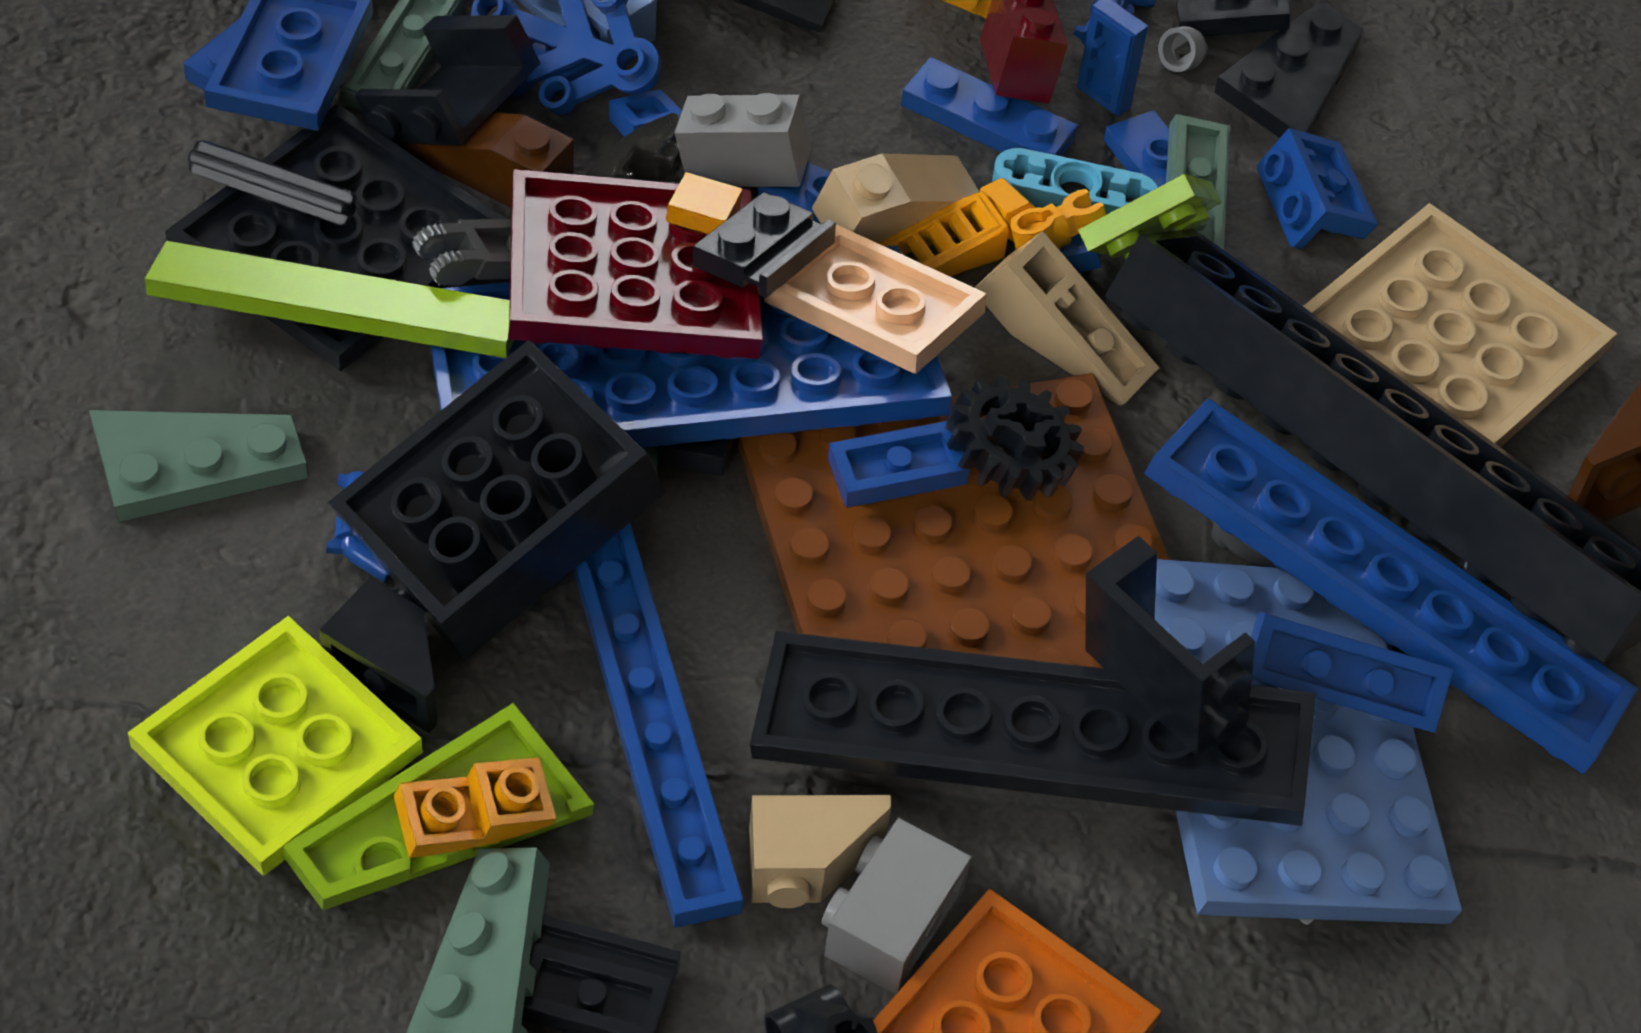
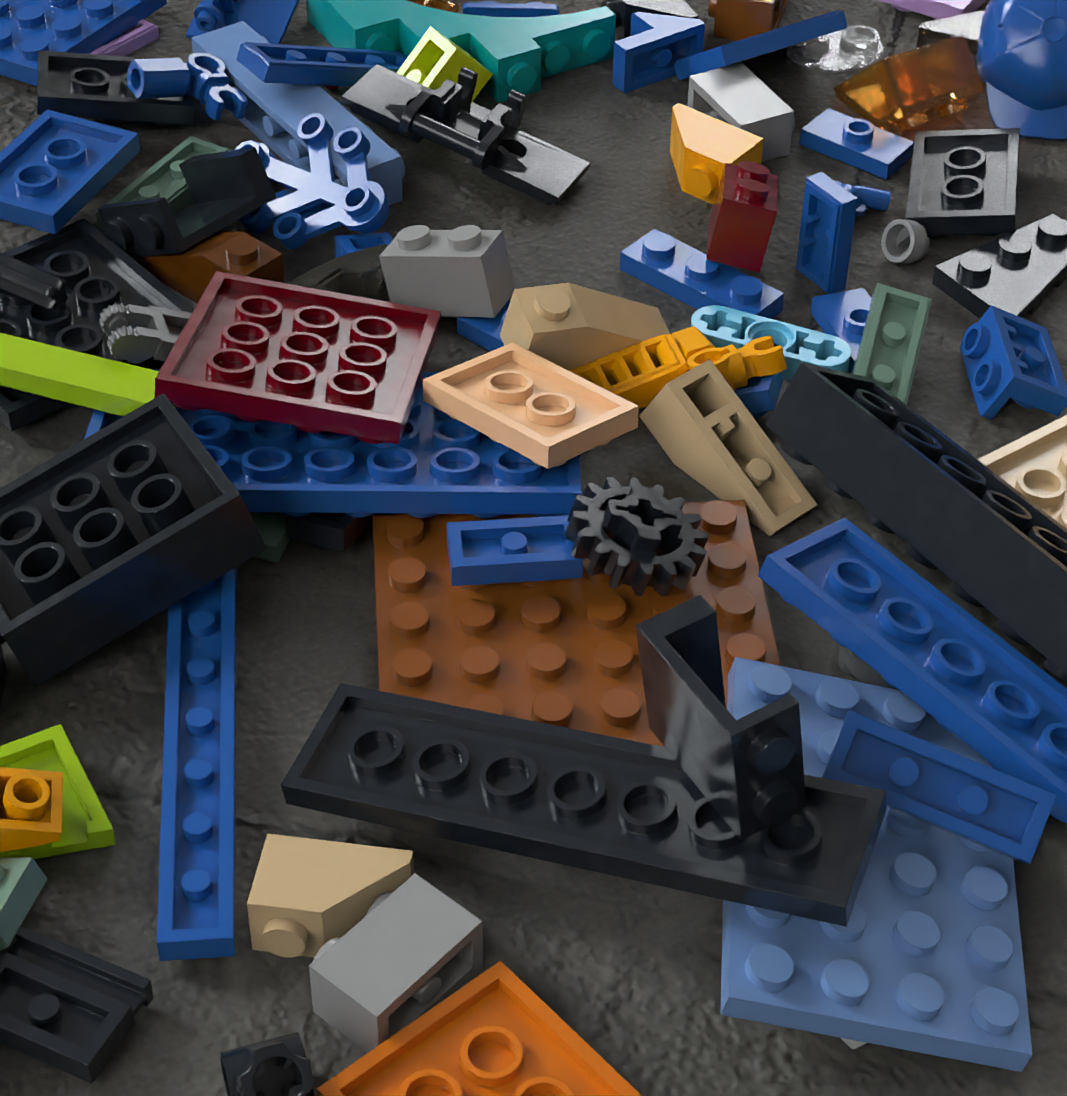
camera: 15 degrees right, 10 degrees down
(702, 203) = (385, 313): light orange tile -> none
(763, 244) = (430, 346): black plate -> none
(1177, 204) = (841, 343): lime plate -> none

